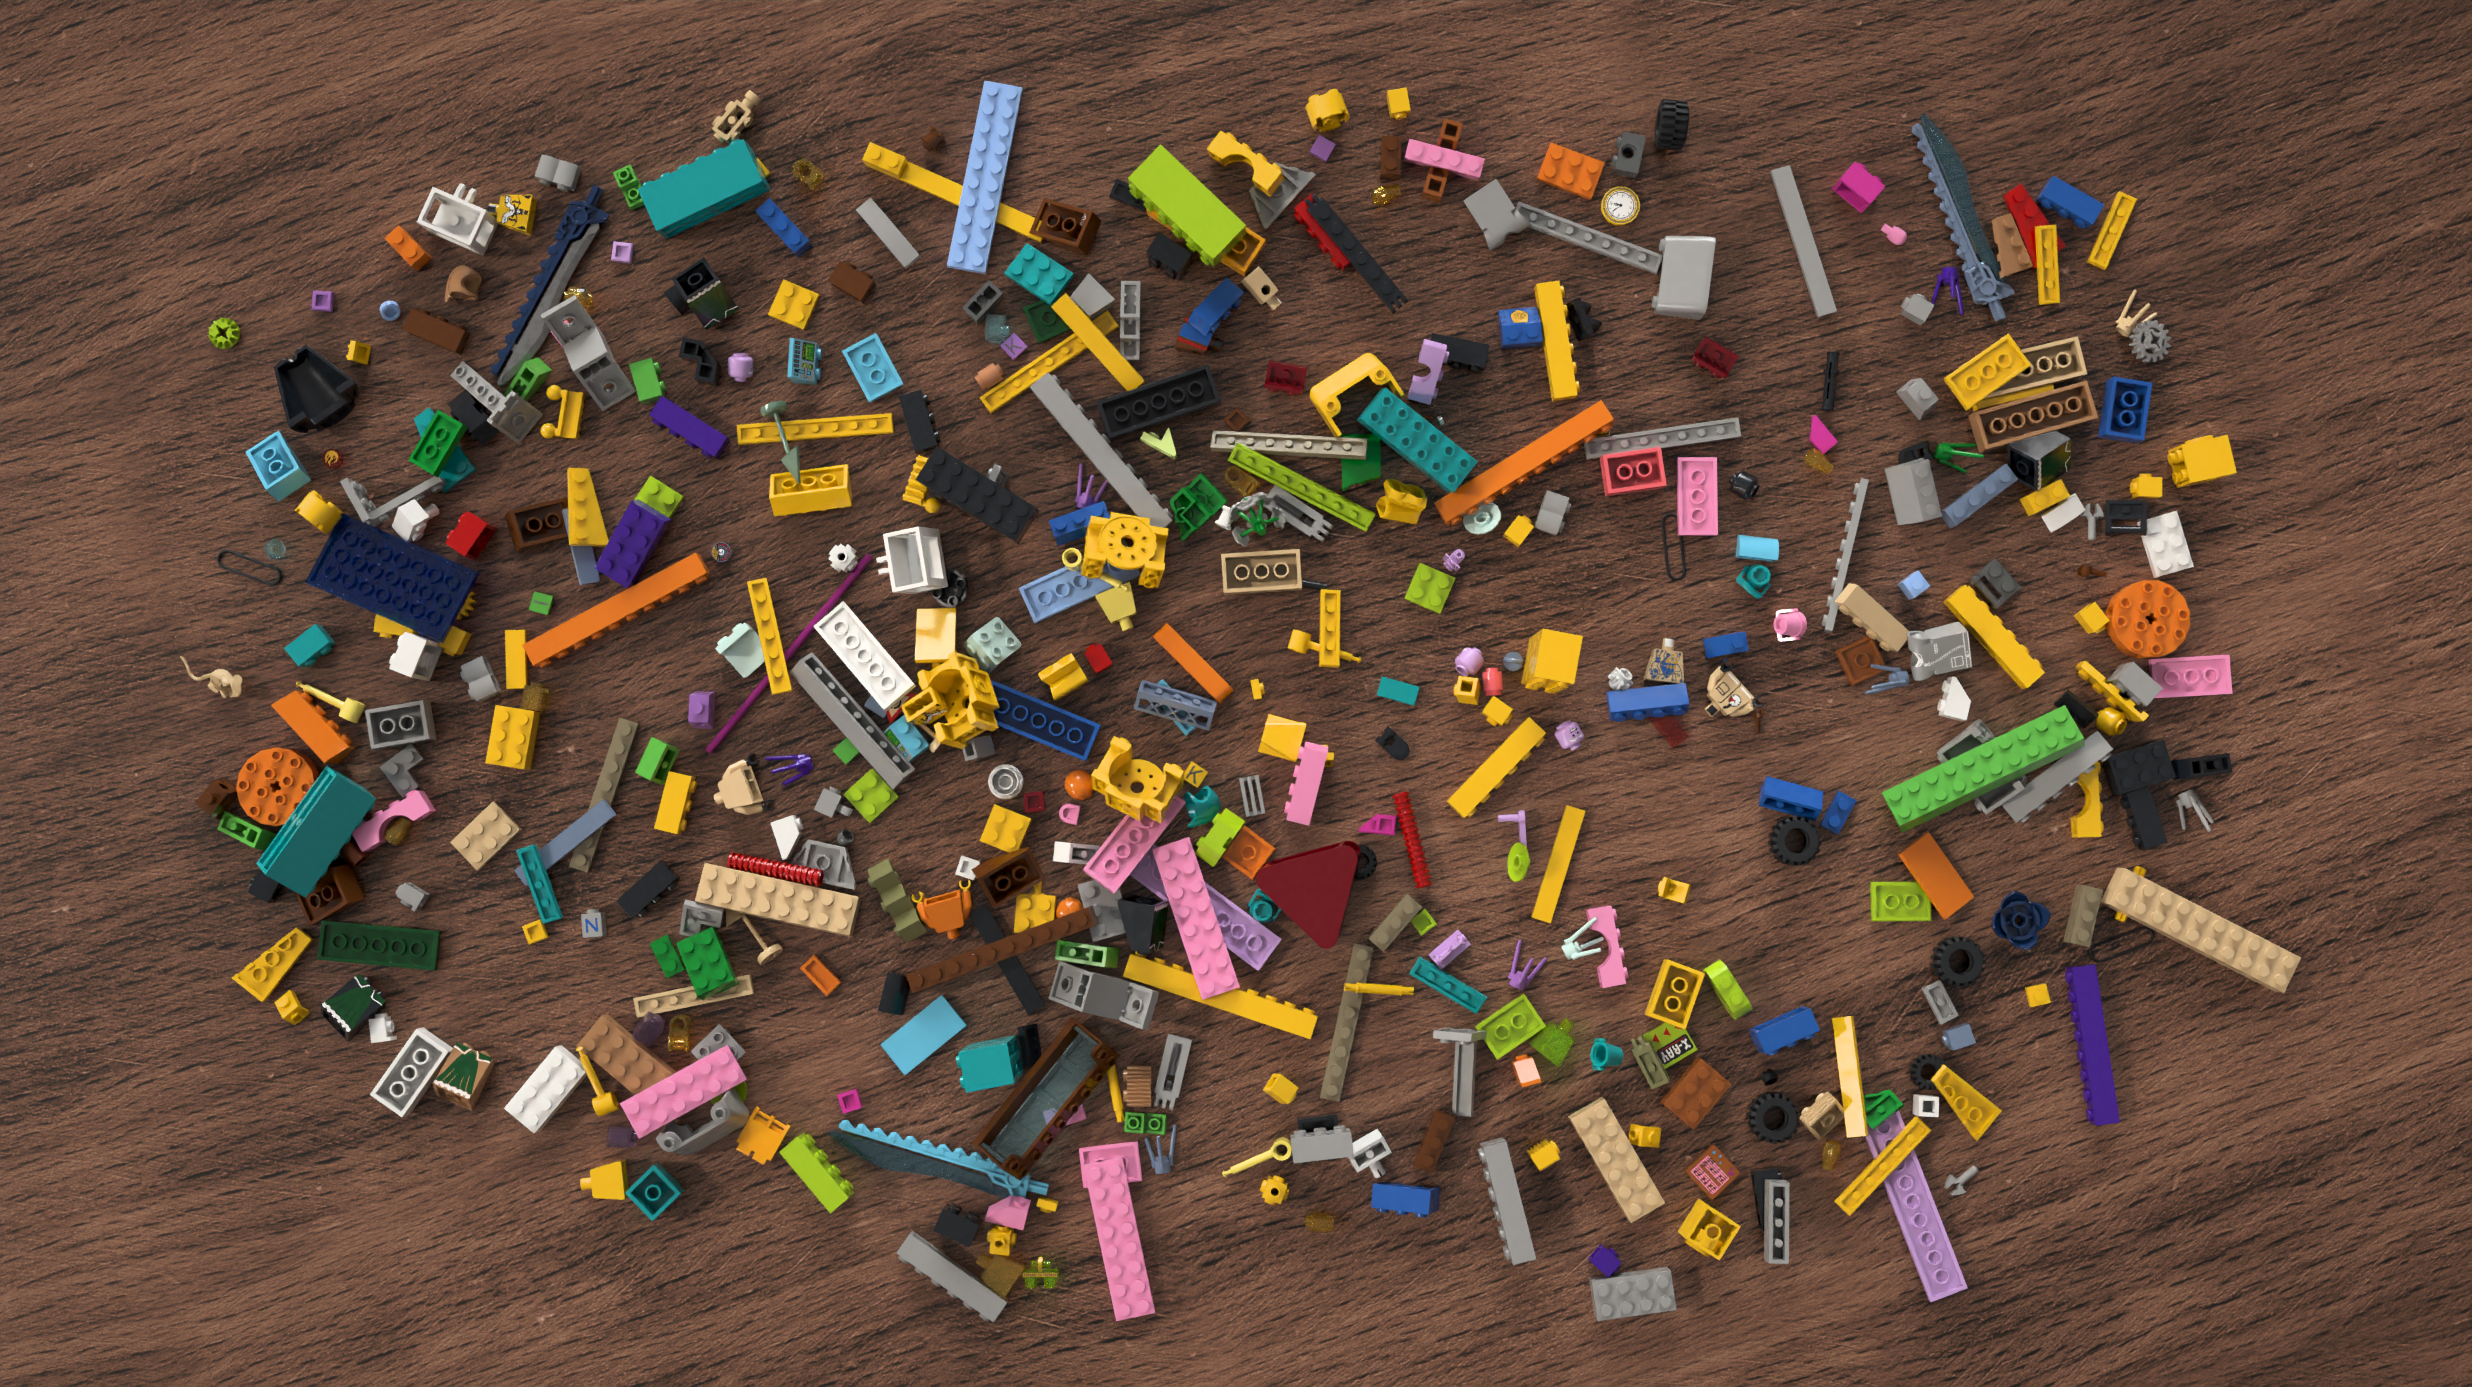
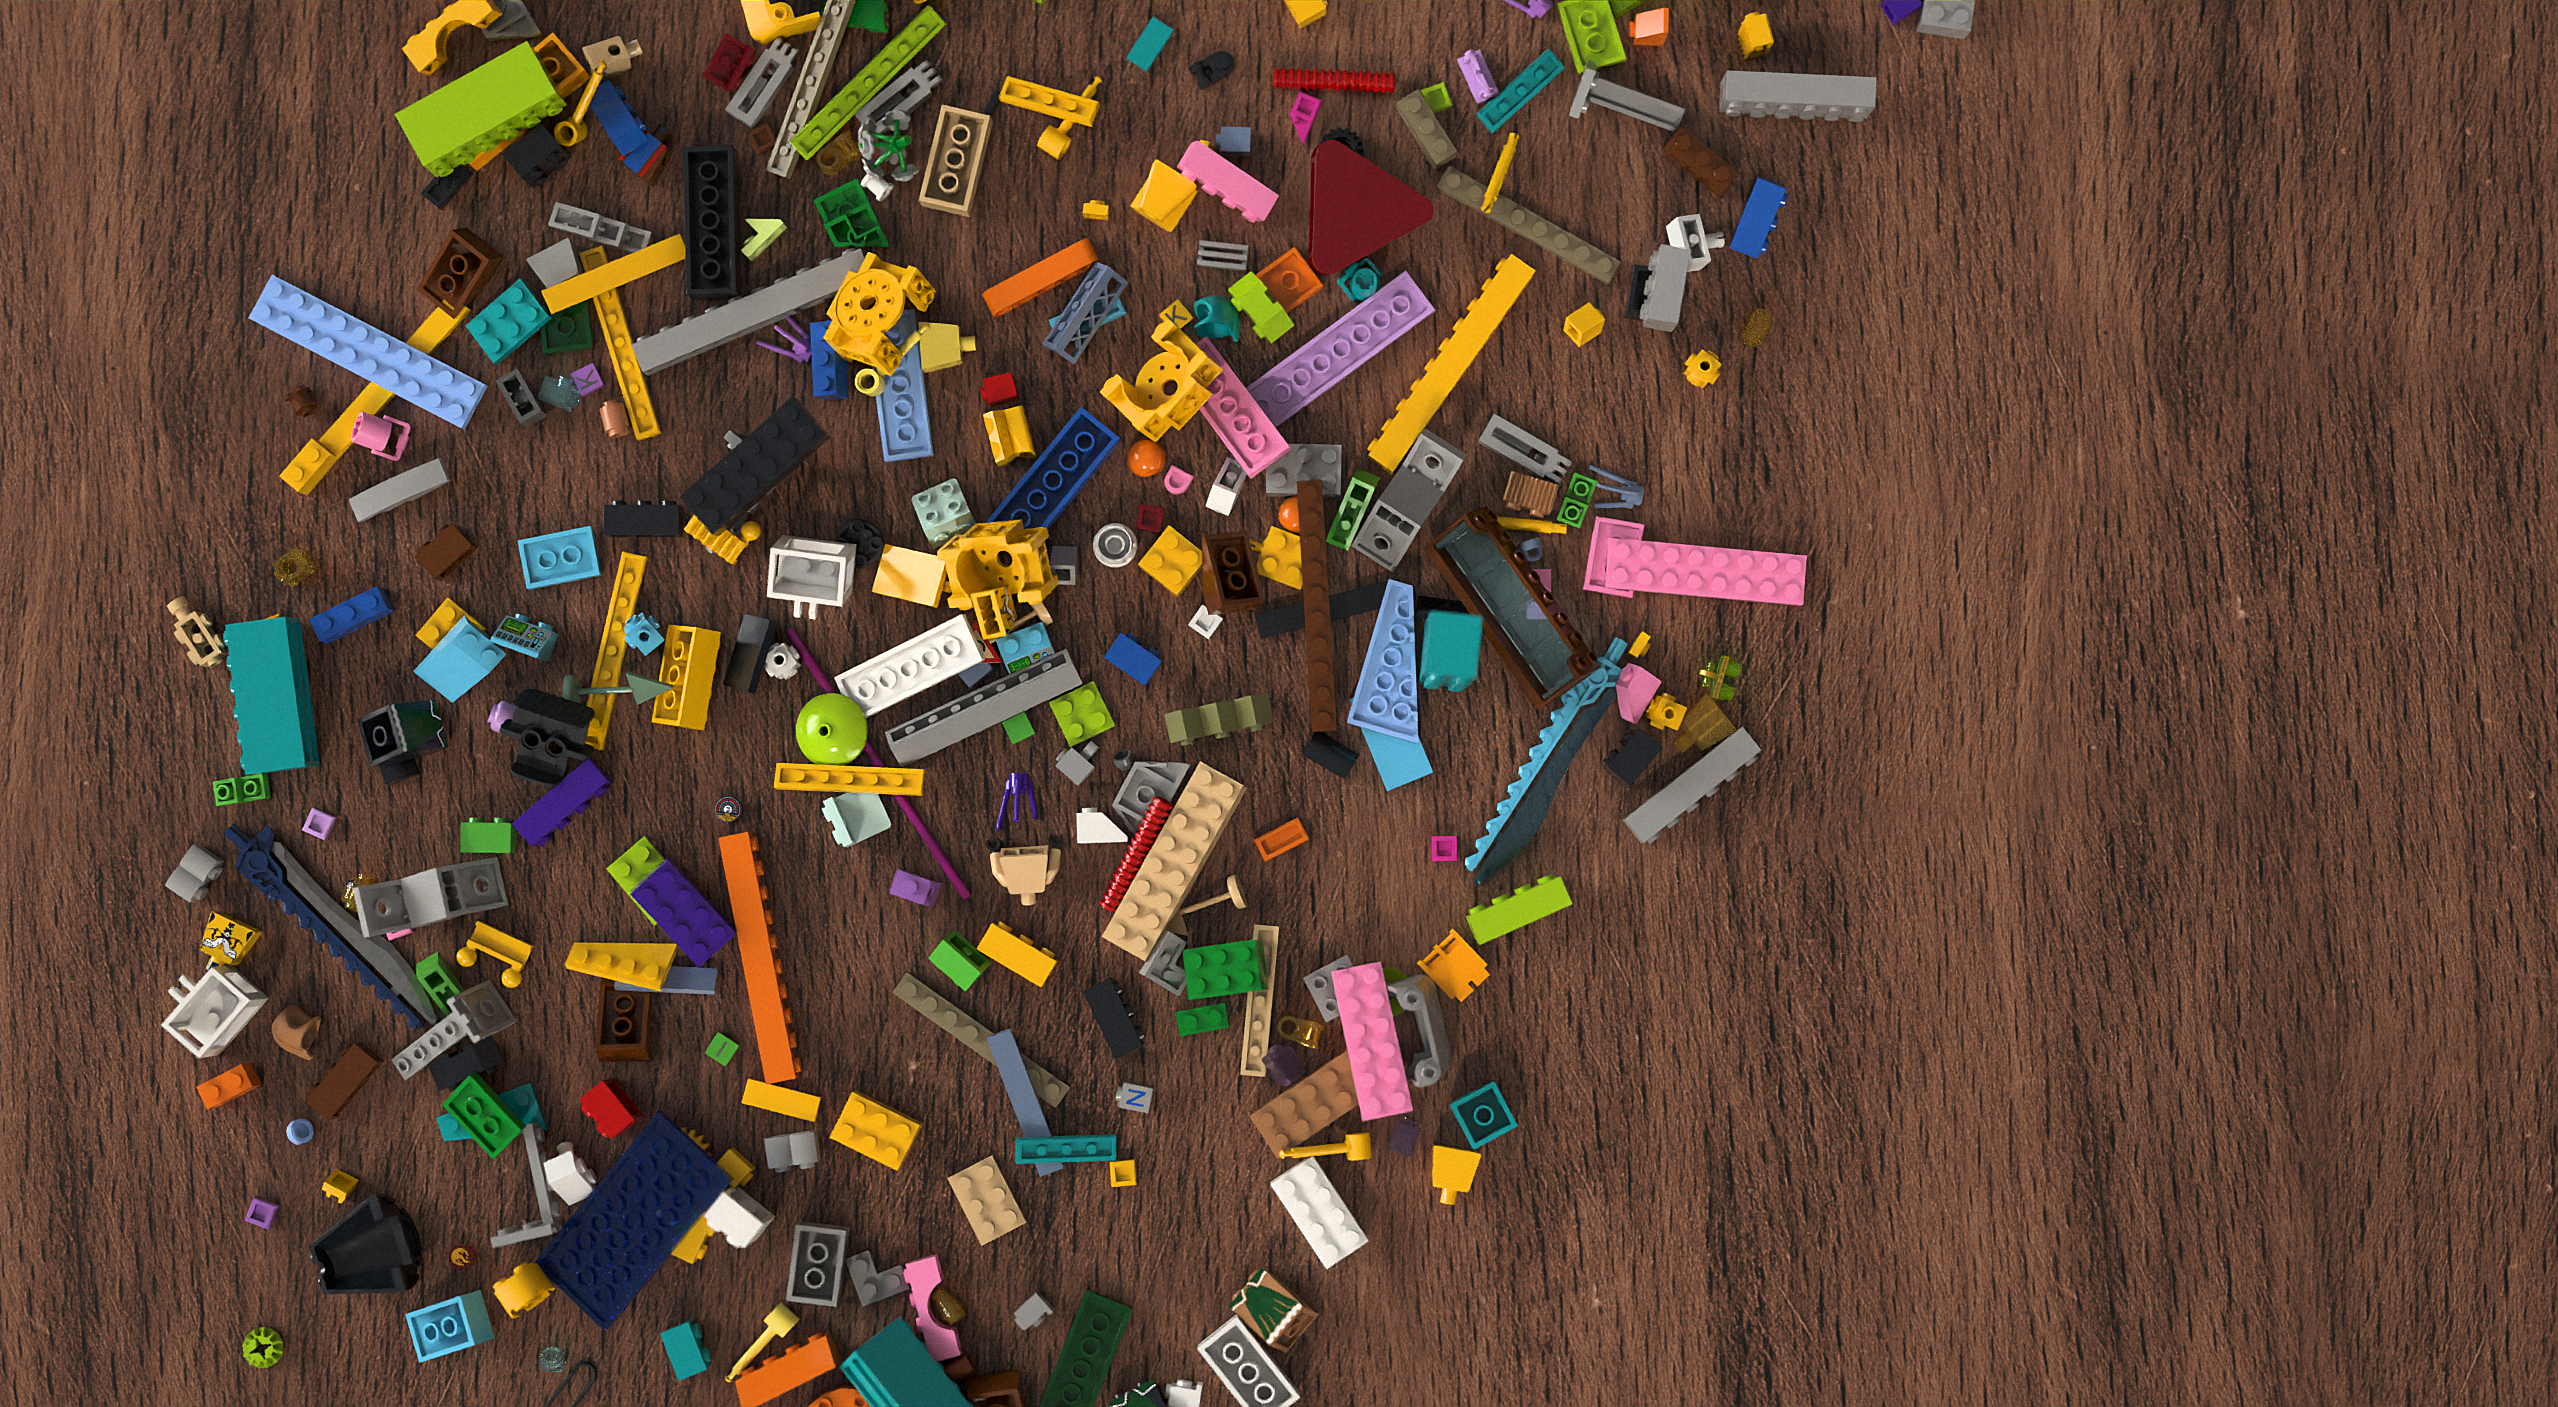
camera: 70 degrees left, 0 degrees up
(534, 697) = (835, 1089): clear yellow brick -> none
(708, 368) = (473, 763): black brick -> none
(734, 403) = (551, 720): none -> black piece
(773, 318) = (460, 660): none -> medium azure slope
(810, 619) = (845, 726): none -> lime dish
(833, 448) = (643, 633): none -> medium azure brick
(841, 533) = (749, 653): none -> black tile
(923, 822) = (1133, 658): none -> blue brick
(924, 202) = (375, 432): none -> bright pink piece
(945, 911) = (1249, 662): orange torso -> none
(963, 1020) = (1387, 684): none -> light blue wing
(1099, 1097) = (1530, 545): none -> sand blue tile
(1144, 922) = (1335, 425): black slope -> none
(1195, 918) = (1349, 363): bright pink plate -> none
(1204, 277) = (575, 122): none -> yellow piece
(1263, 1157) = (1659, 370): light yellow piece -> none
(1271, 406) = (757, 92): none -> light grey hinge
(1341, 778) = (1234, 141): none -> sand blue brick

